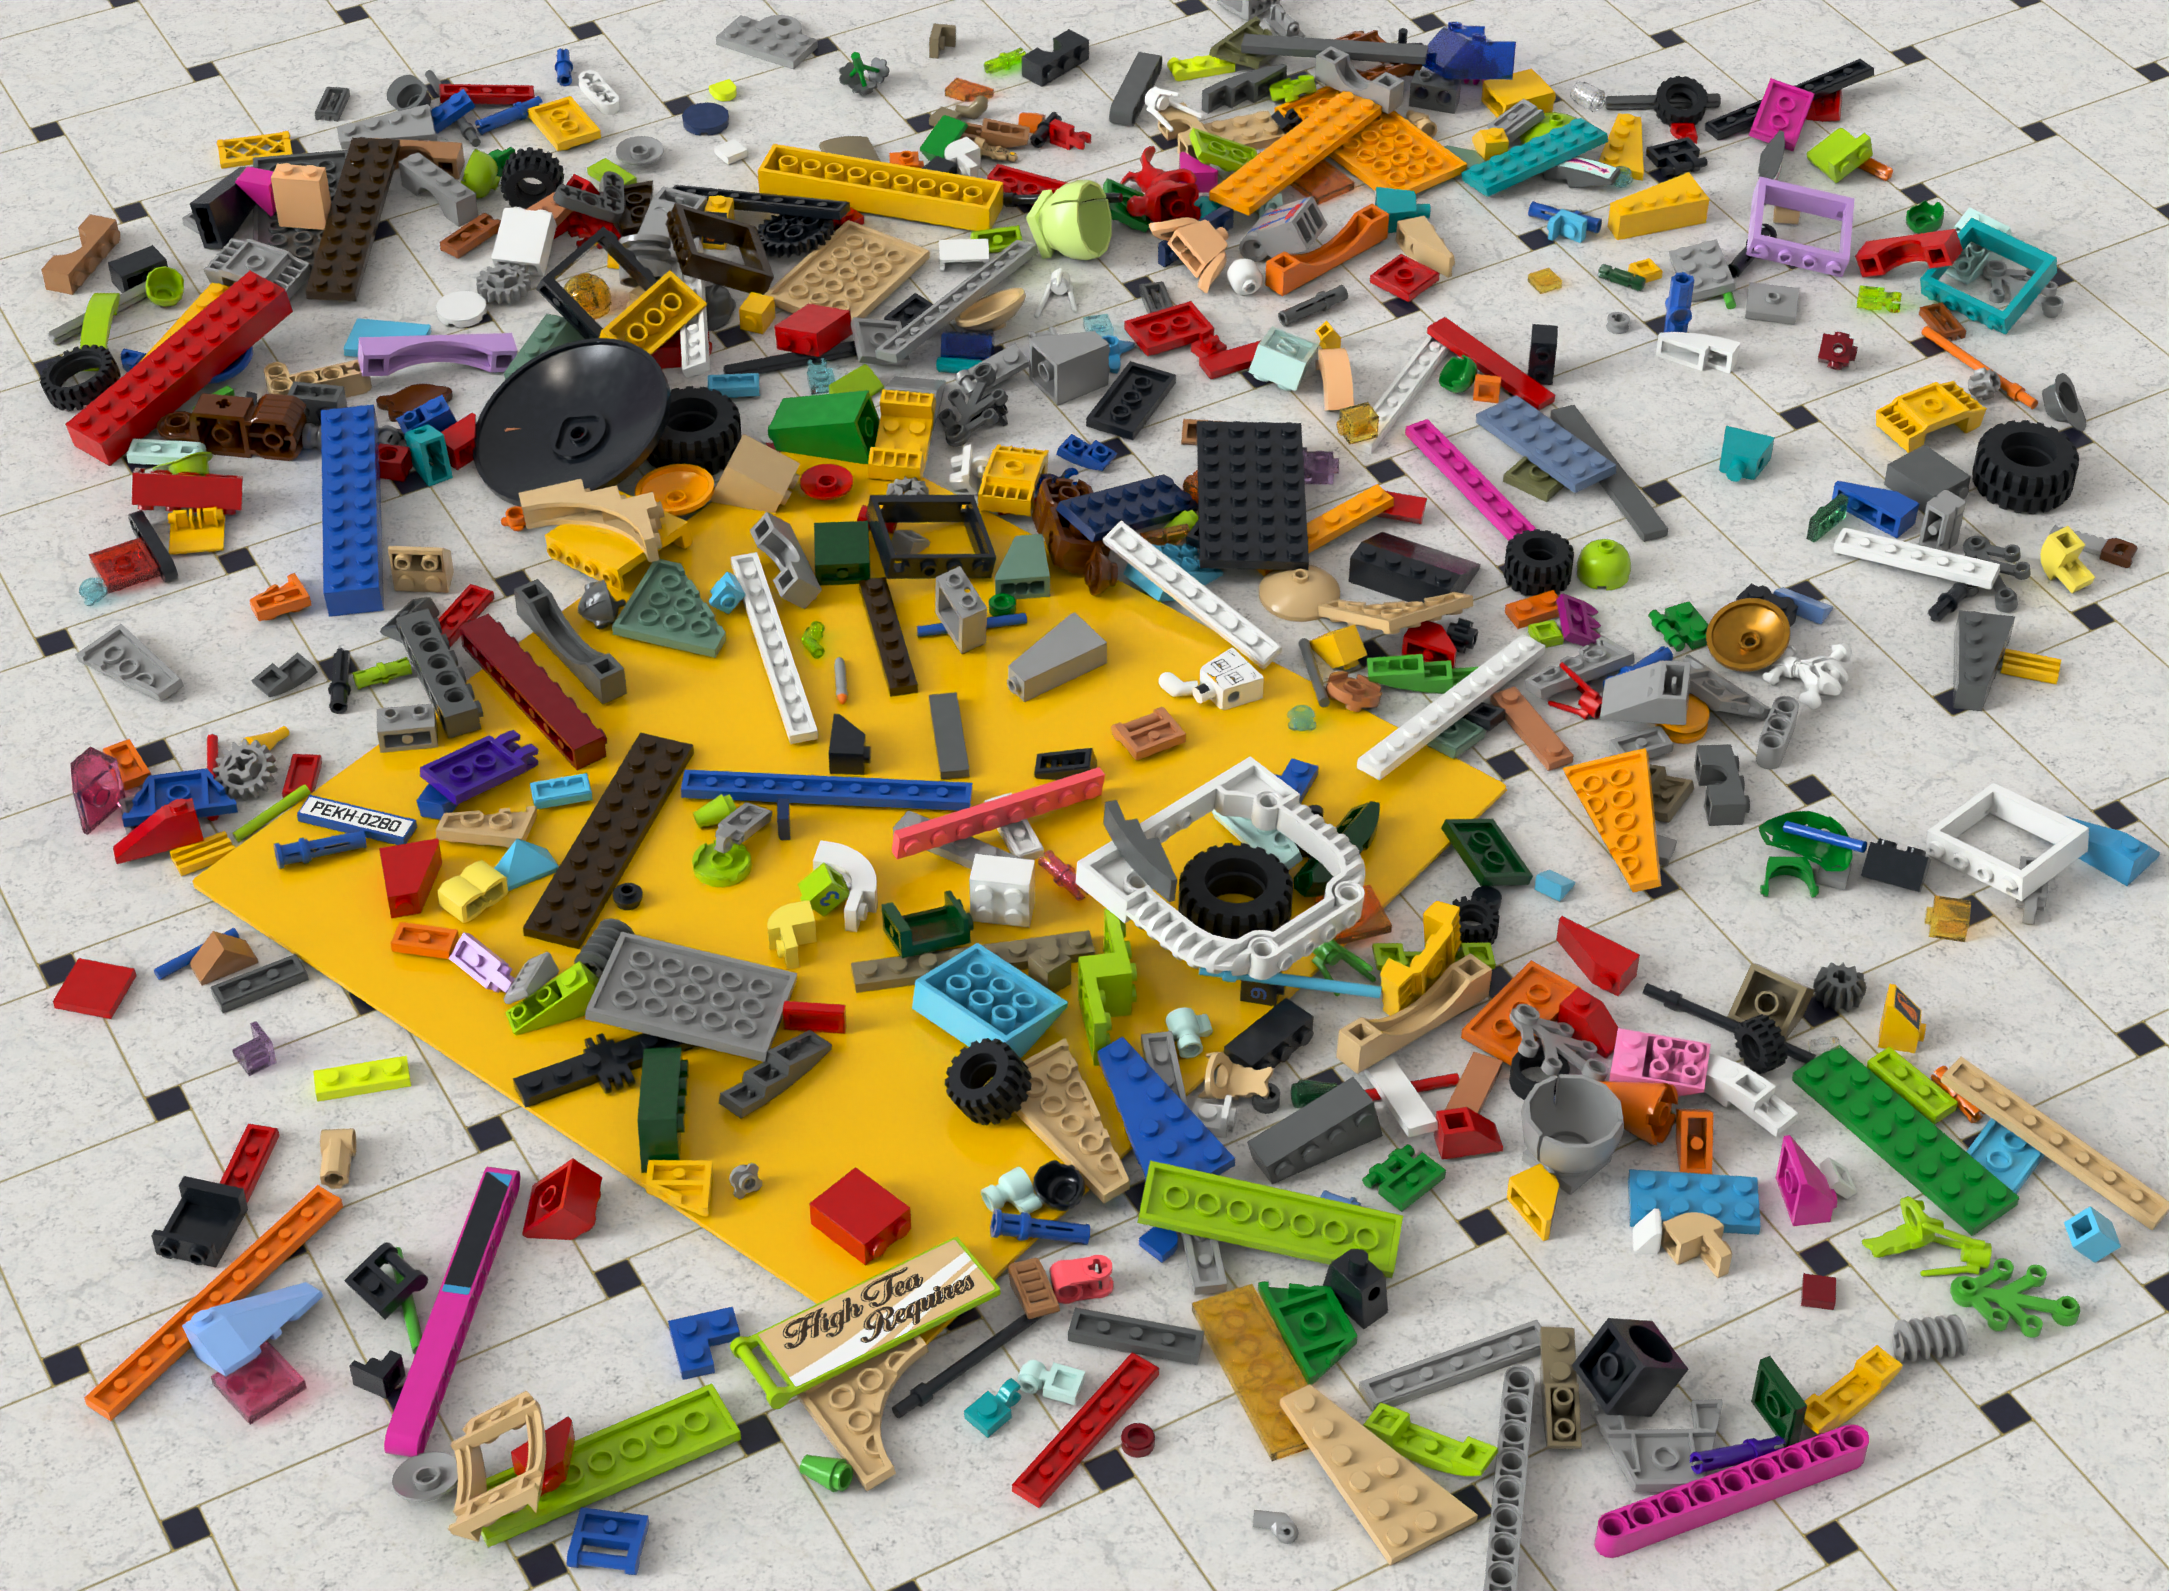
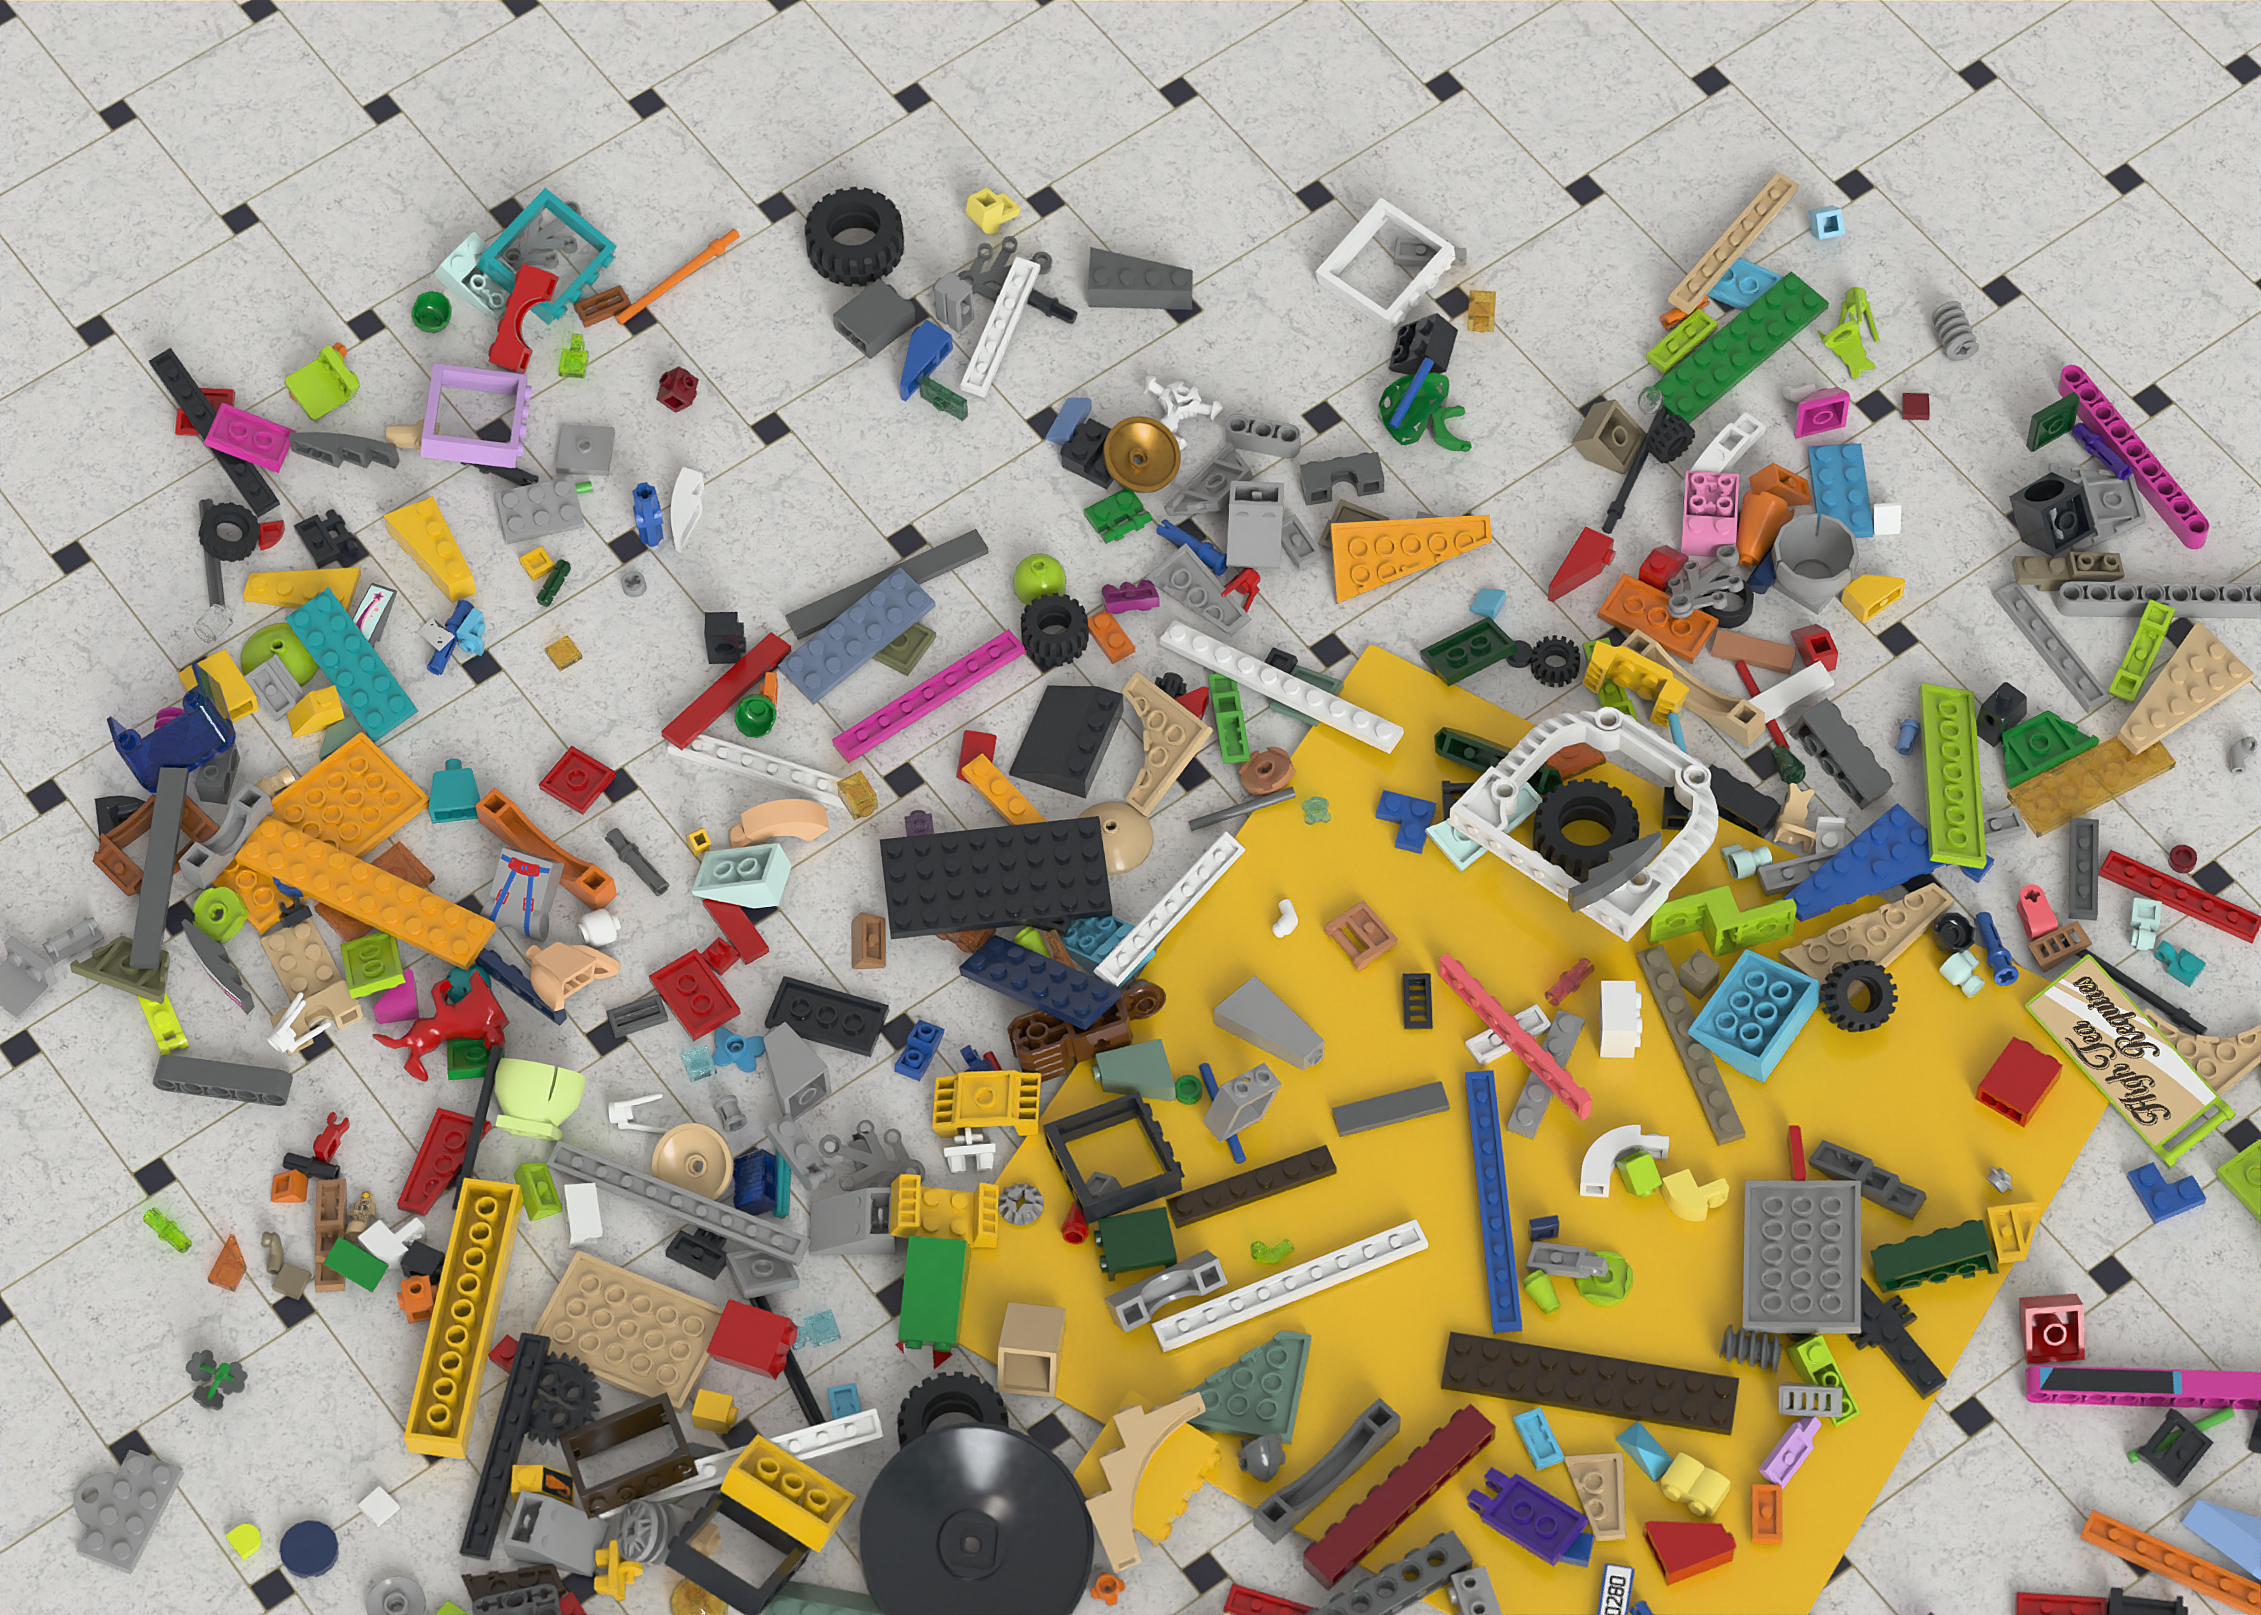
camera: 95 degrees left, 15 degrees up
(336, 1150) = (2031, 1531): tan piece -> none
(361, 1078) = (1935, 1538): neon yellow plate -> none
(627, 896) = (1664, 1356): black plate -> none
(678, 487) = (1063, 1409): light orange dish -> none
(726, 593) = (1220, 1341): medium azure bracket -> none
(826, 481) = (1022, 1267): red dish -> none
(840, 680) = (1325, 1218): light grey piece -> none
(847, 748) = (1431, 1191): black slope -> none
(850, 146) = (380, 1370): dark tan slope -> none
(857, 380) = (835, 1290): lime slope -> none
(927, 929) = (1667, 1079): dark green panel -> none
(941, 36) = (129, 1310): dark tan bracket -> none
(1068, 52) = (146, 1158): black arch -> none
(1229, 681) = (1278, 873): white torso -> none
(1332, 953) = (1623, 764): bright green plant -> none
(1340, 647) = (1200, 792): yellow slope -> none
(1410, 1182) = (1869, 686): green plate -> none
(1422, 243) = (516, 765): tan slope -> none
(1532, 729) = (1286, 628): nougat plate -> none
(1546, 633) = (1144, 626): lime tile -> none
(1624, 178) = (363, 584): clear light blue plate -> none
(1695, 1236) = (1887, 481): tan brick -> none
(1744, 453) = (853, 468): teal torso -> none
(1839, 987) = (1580, 389): dark grey gear -> none
(1852, 1392) = (2012, 385): yellow slope -> none
(1900, 1022) = (1621, 347): yellow slope -> none
(1926, 410) = (774, 313): yellow plate -> none
(1975, 1292) = (1894, 282): bright green plant -> none
(1984, 383) = (716, 269): light grey gear -> none
(2031, 666) = (1133, 231): yellow tile -> none
(2062, 402) = (742, 208): dark grey piece -> none
(2107, 548) = (946, 193): reddish brown piece -> none
(2116, 853) = (1360, 195): dark azure wedge -> none

